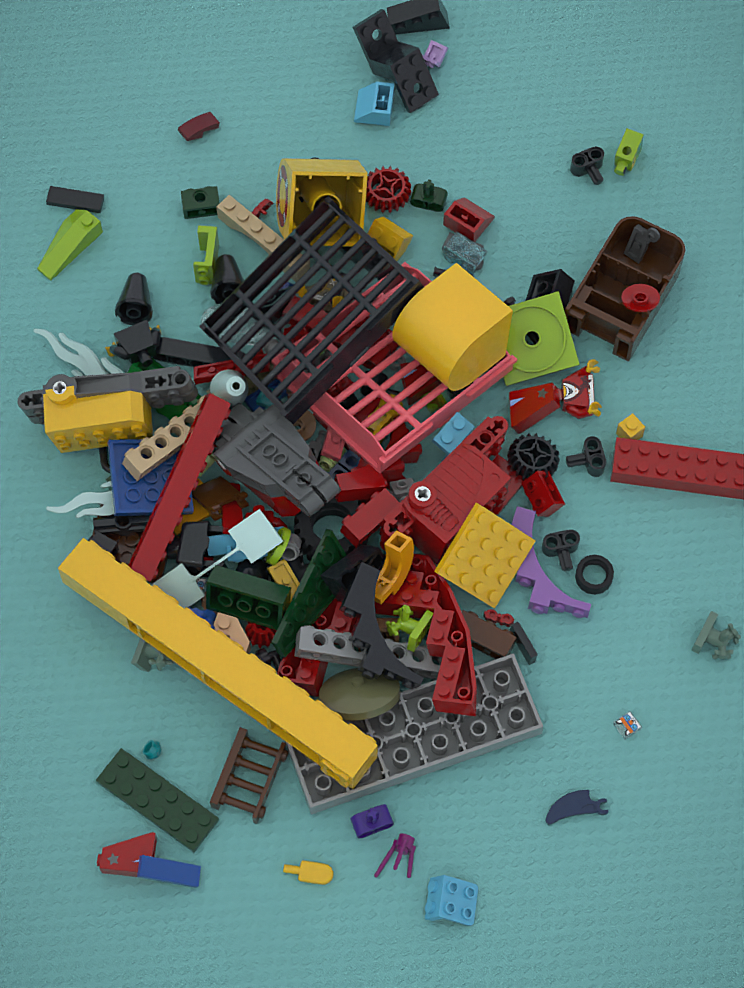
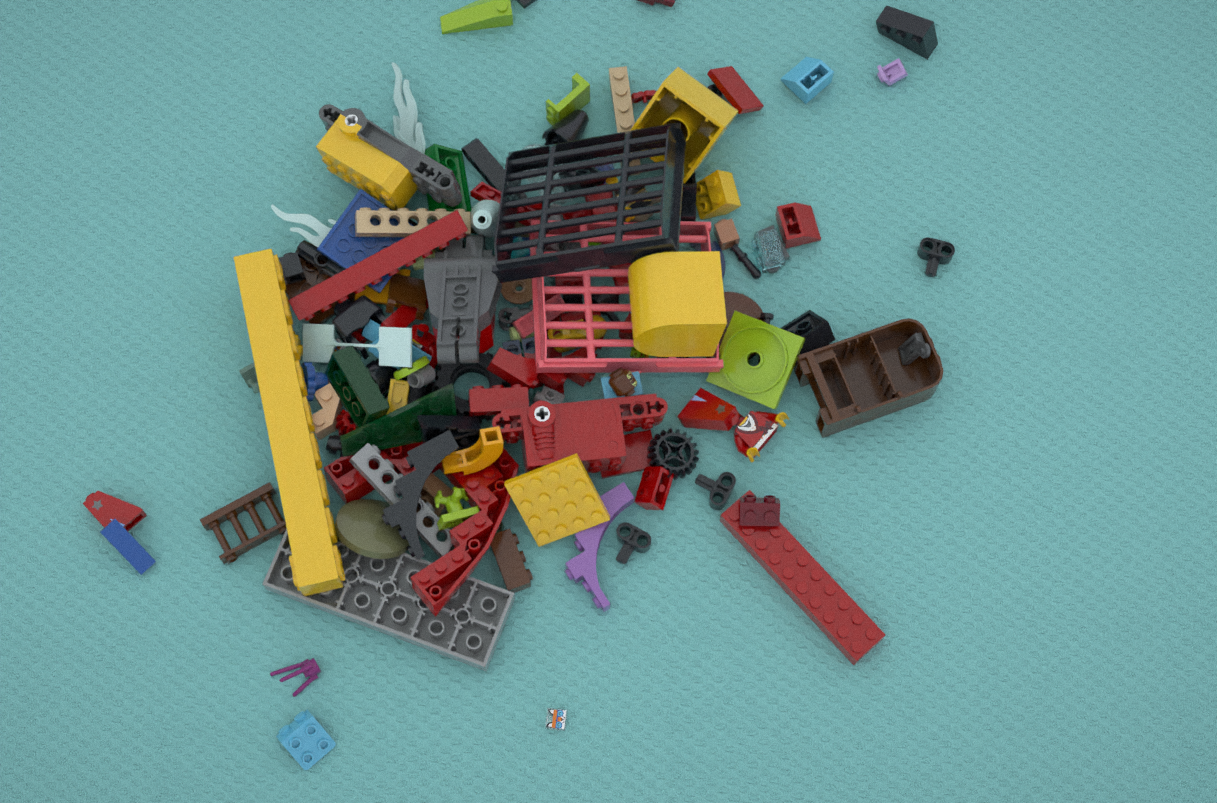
camera: 40 degrees right, 5 degrees up
(134, 302) = (484, 96): black cone -> none
(136, 343) = (455, 131): black torso -> none
(152, 749) = (198, 447): teal plate -> none
(157, 800) = (170, 488): dark green plate -> none
(196, 209) = (596, 48): dark green brick -> none
(311, 872) = (228, 632): yellow piece -> none
(322, 150) = (735, 89): none -> red tile
(372, 821) = (302, 631): dark purple beam -> none
(389, 183) = (742, 149): red gear -> none
(395, 60) = (852, 54): black bracket -> none
(422, 262) = (726, 233): none -> nougat brick
(428, 196) = (782, 184): dark green beam -> none
(455, 427) = (622, 382): none -> reddish brown head
(504, 619) = (538, 561): red piece -> none
(524, 643) = (534, 591): black tile -> none
(574, 804) = (459, 744): dark blue piece -> none
(594, 560) = (637, 598): black tyre -> none
(628, 151) = (974, 268): lime torso -> none
(630, 428) = (769, 488): yellow brick -> none
(640, 298) = (866, 388): red dish -> none
(641, 444) = (759, 511): none -> dark red bracket
(716, 638) = (682, 703): sand green piece -> none

